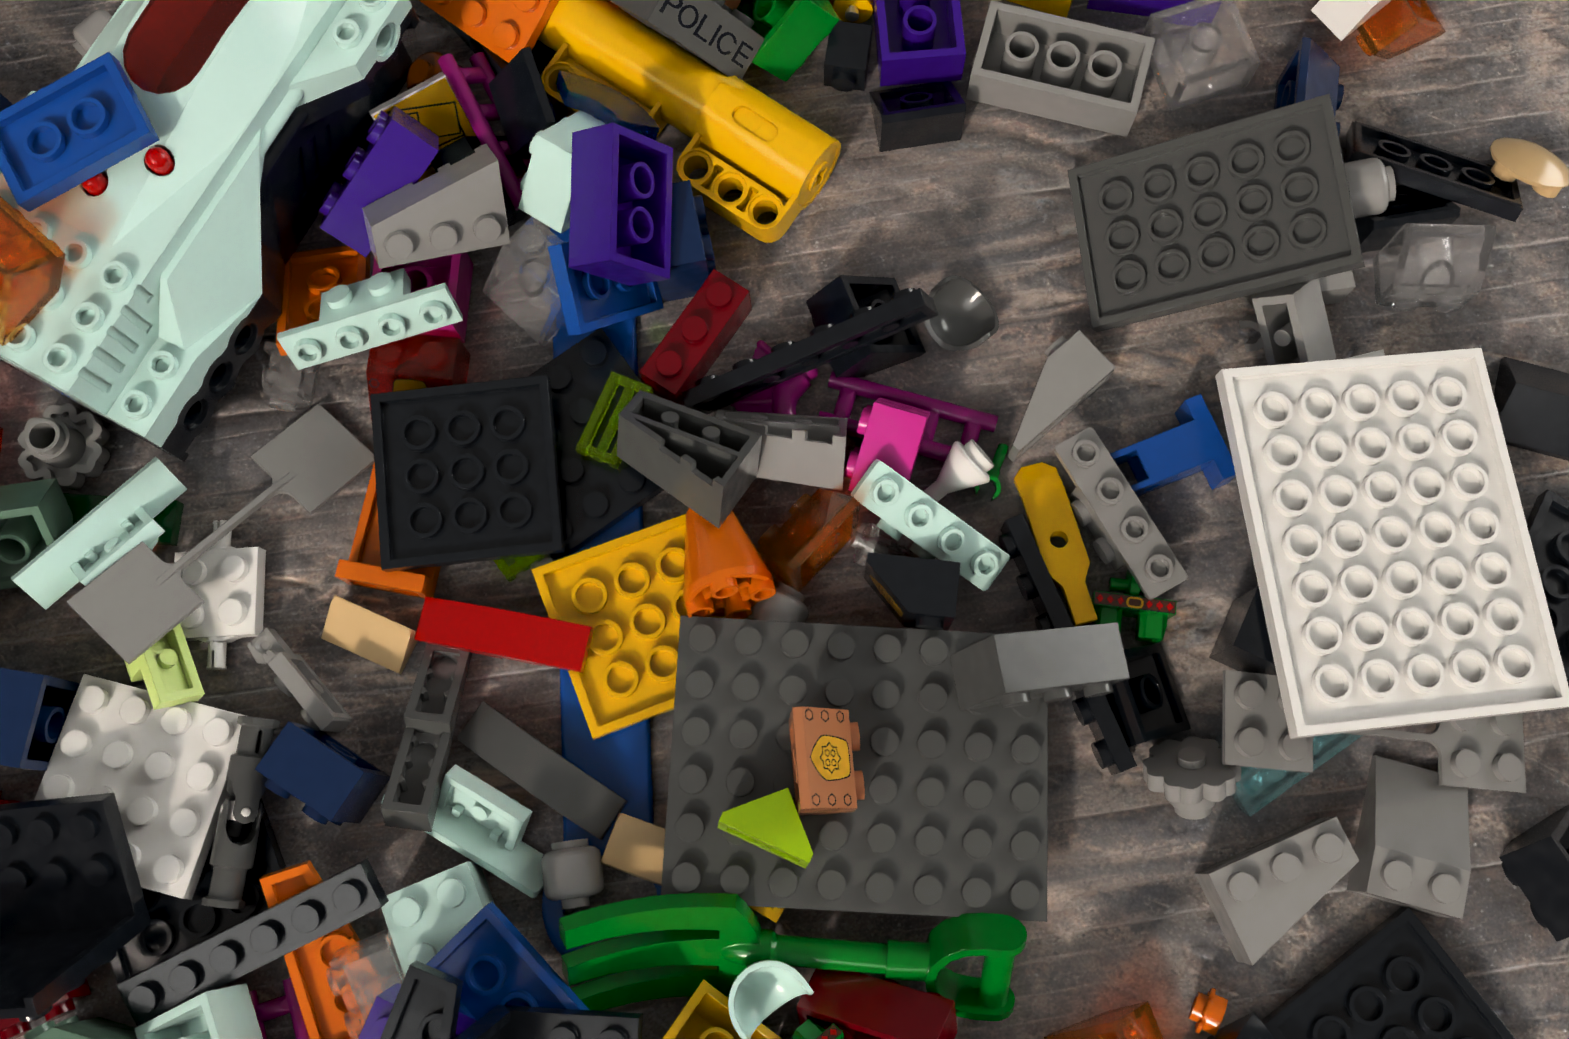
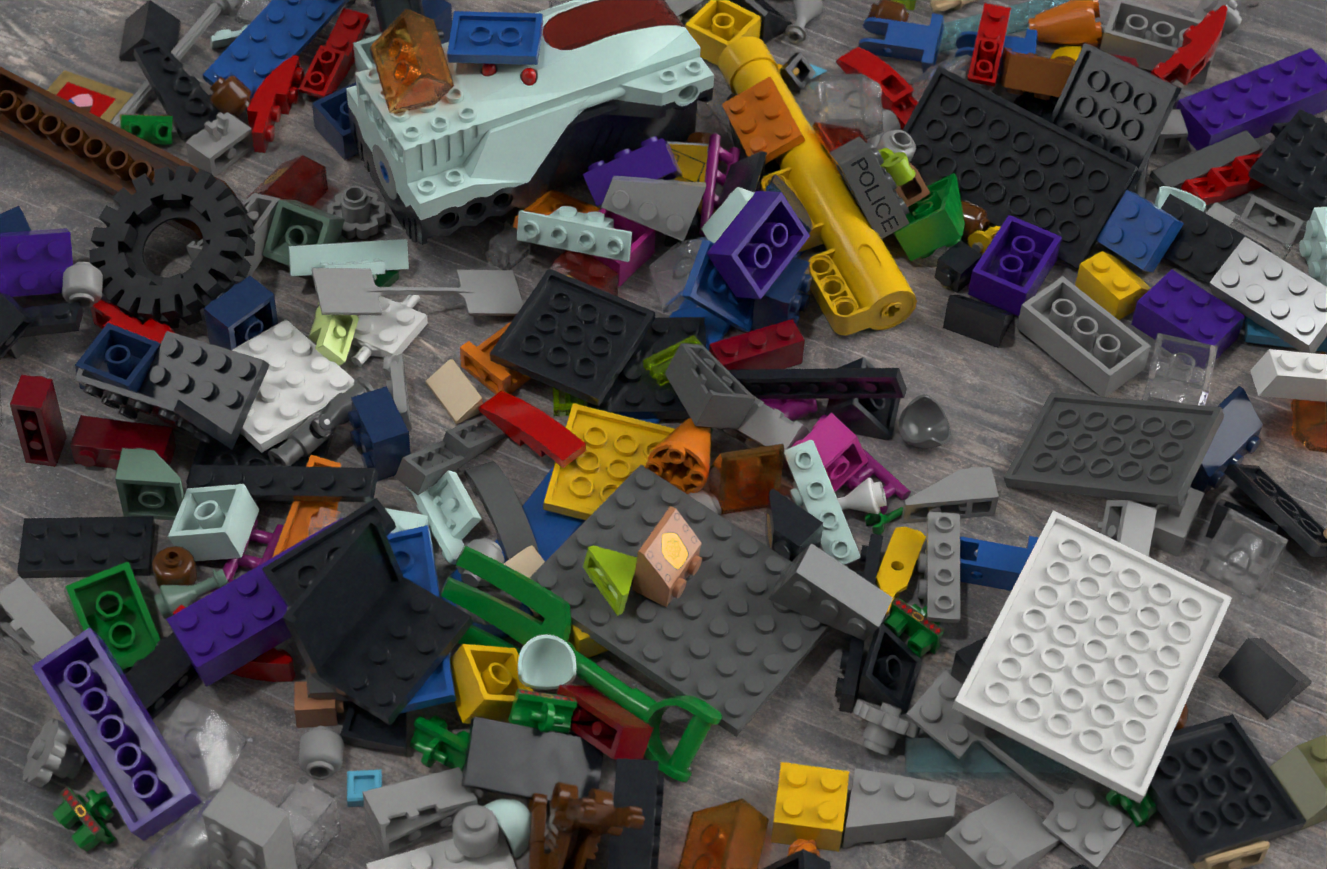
camera: 25 degrees right, 25 degrees down
(1180, 948) = (810, 805): none -> yellow brick
(1370, 186) = (1222, 485): light grey head -> none

